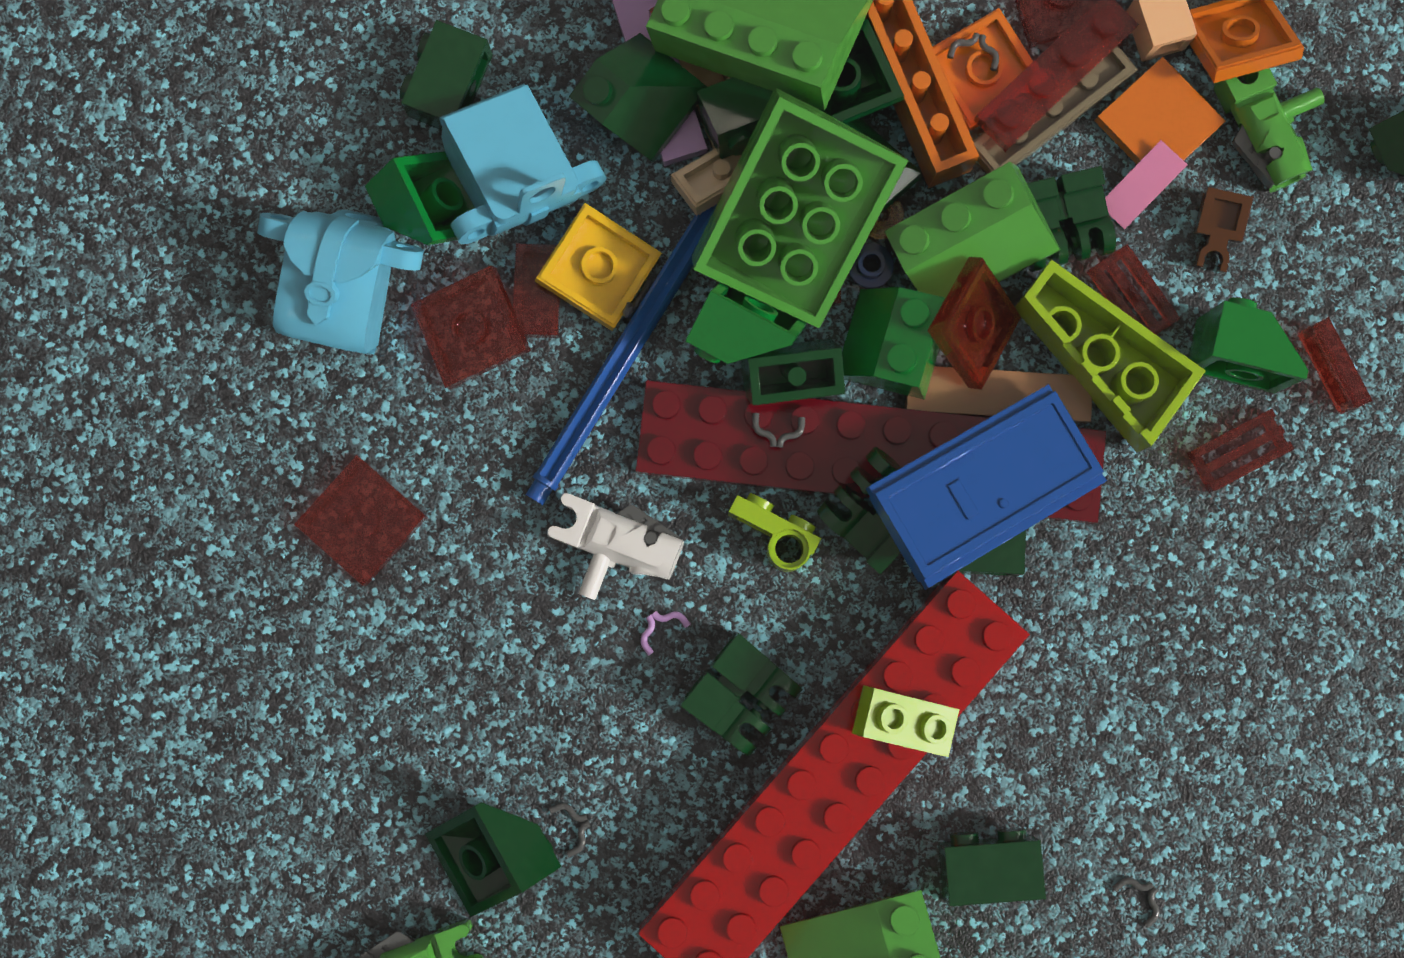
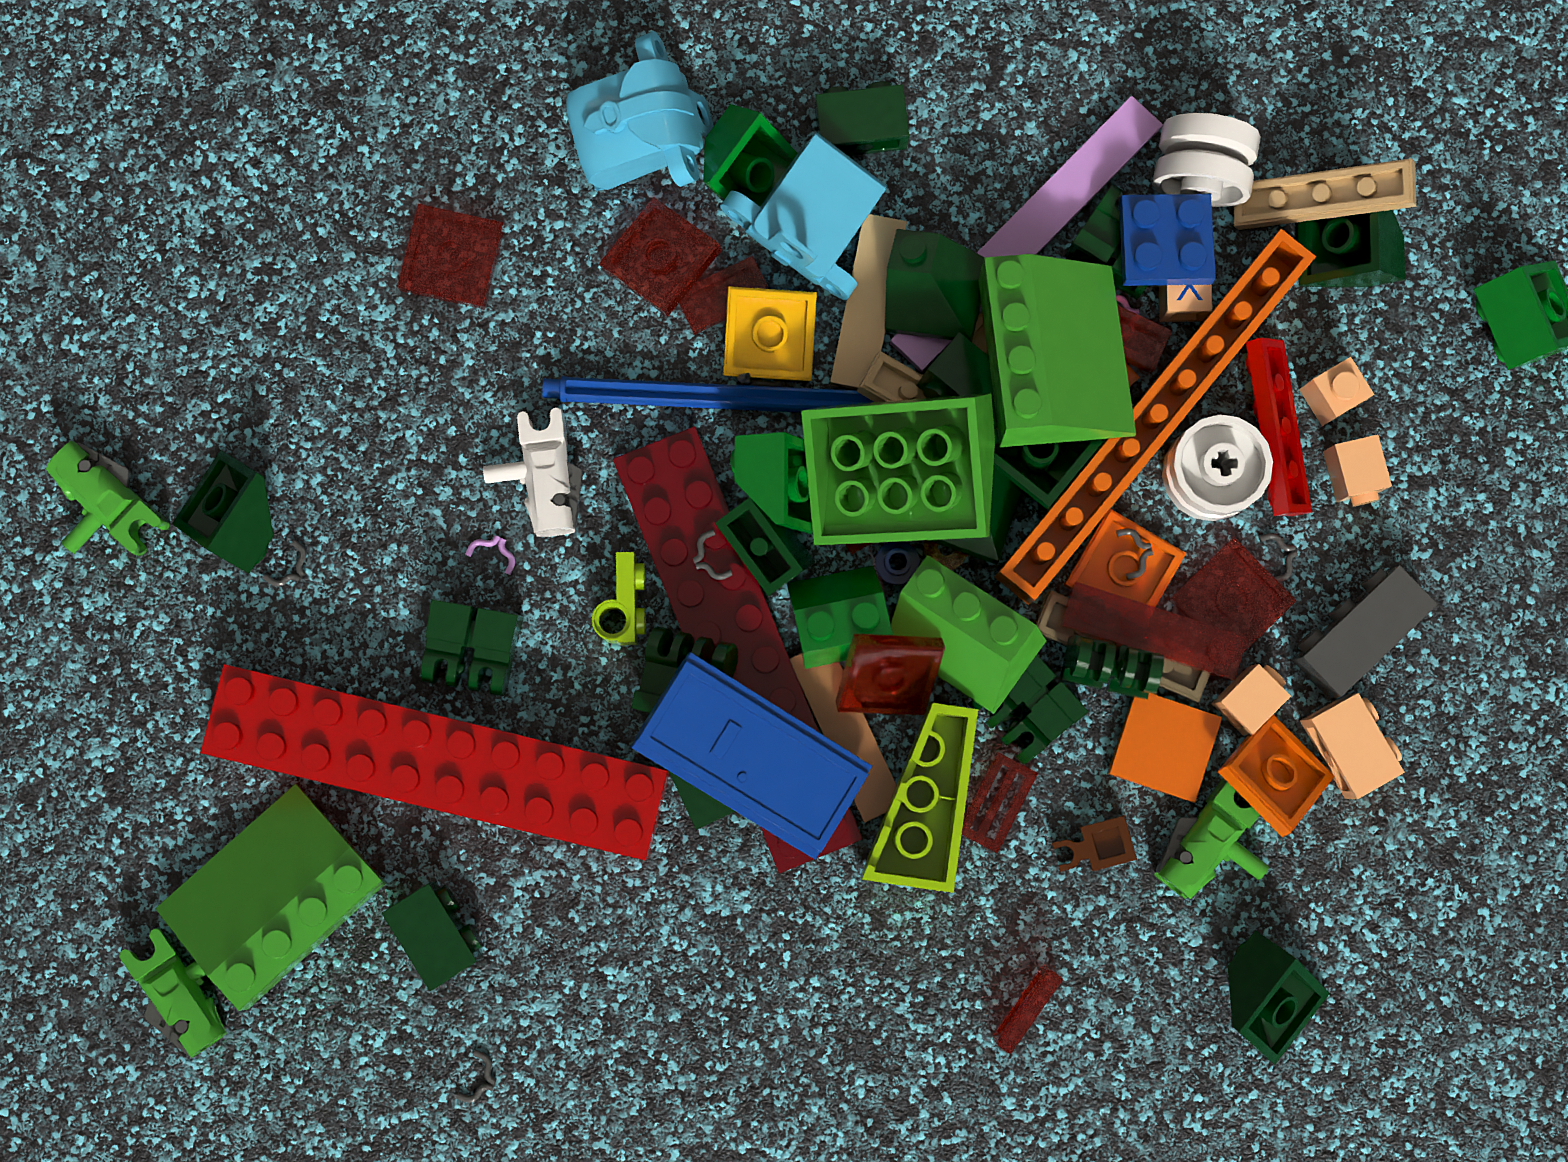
camera: 60 degrees right, 0 degrees up
(626, 169) = (864, 311): none -> tan tile
(905, 721) = (511, 789): lime plate -> none
(1074, 121) = (1123, 668): none -> dark green legs
(1143, 184) = (1098, 759): bright pink sticker -> none
(1246, 347) = (995, 917): green slope -> none
(1273, 433) = (942, 988): clear red tile -> none

